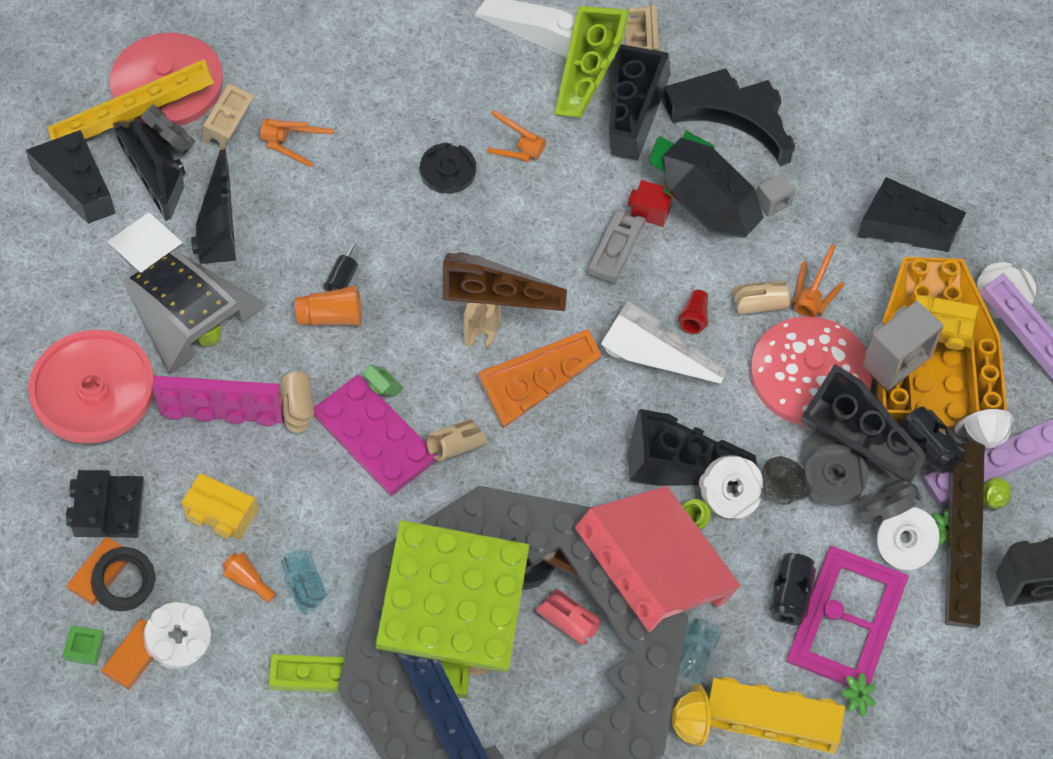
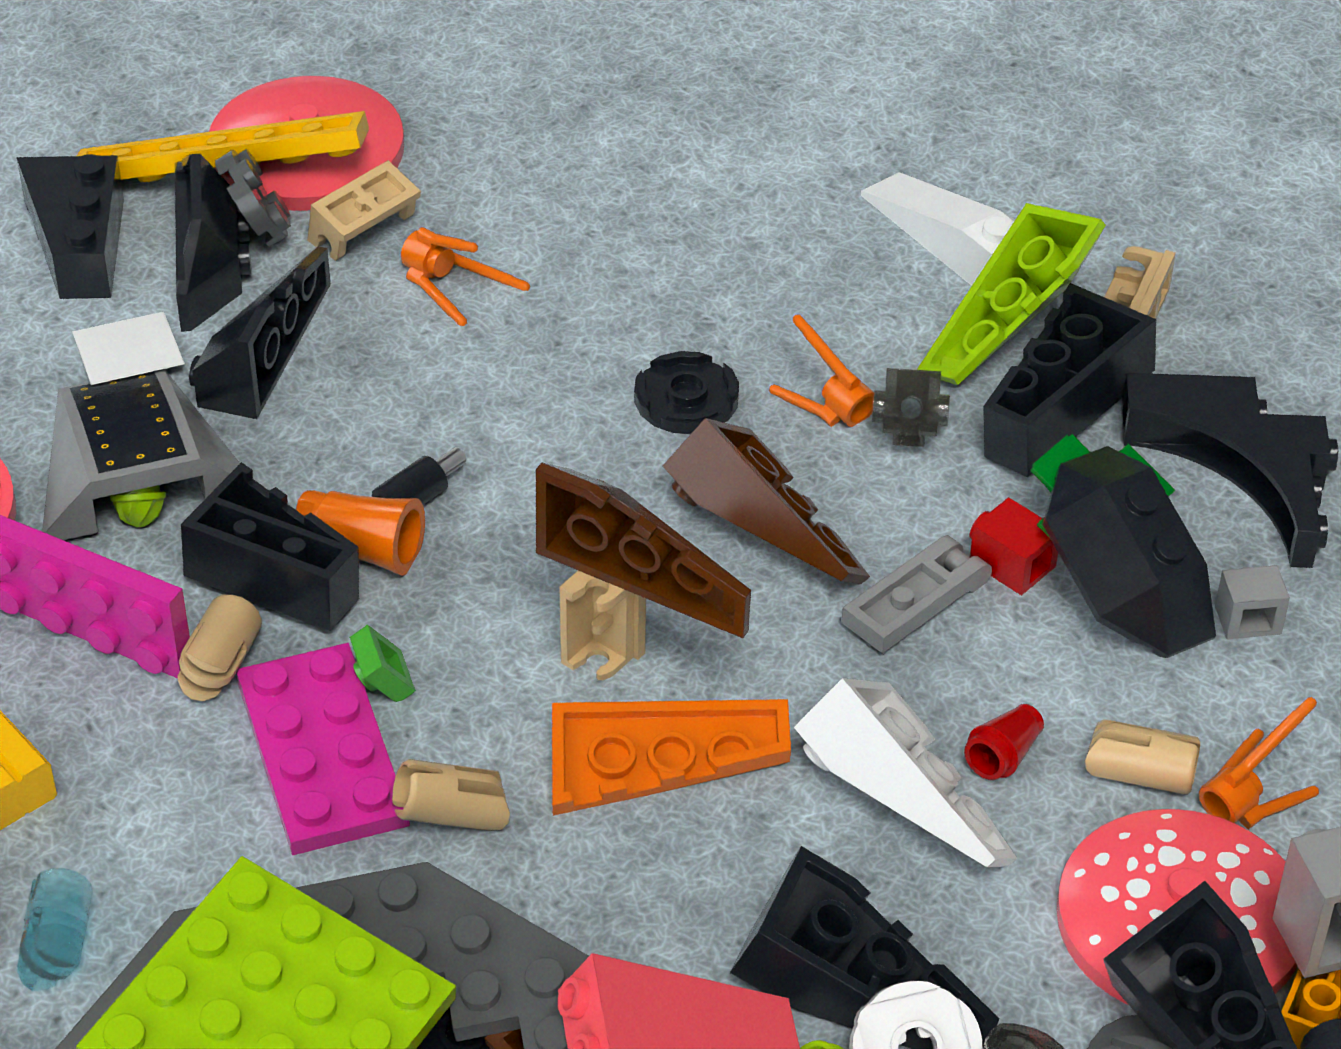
camera: 25 degrees right, 15 degrees down
(296, 340) = (270, 553): none -> black wedge
(502, 215) = (744, 482): none -> reddish brown wedge
(567, 140) = (915, 385): none -> clear smoke brick

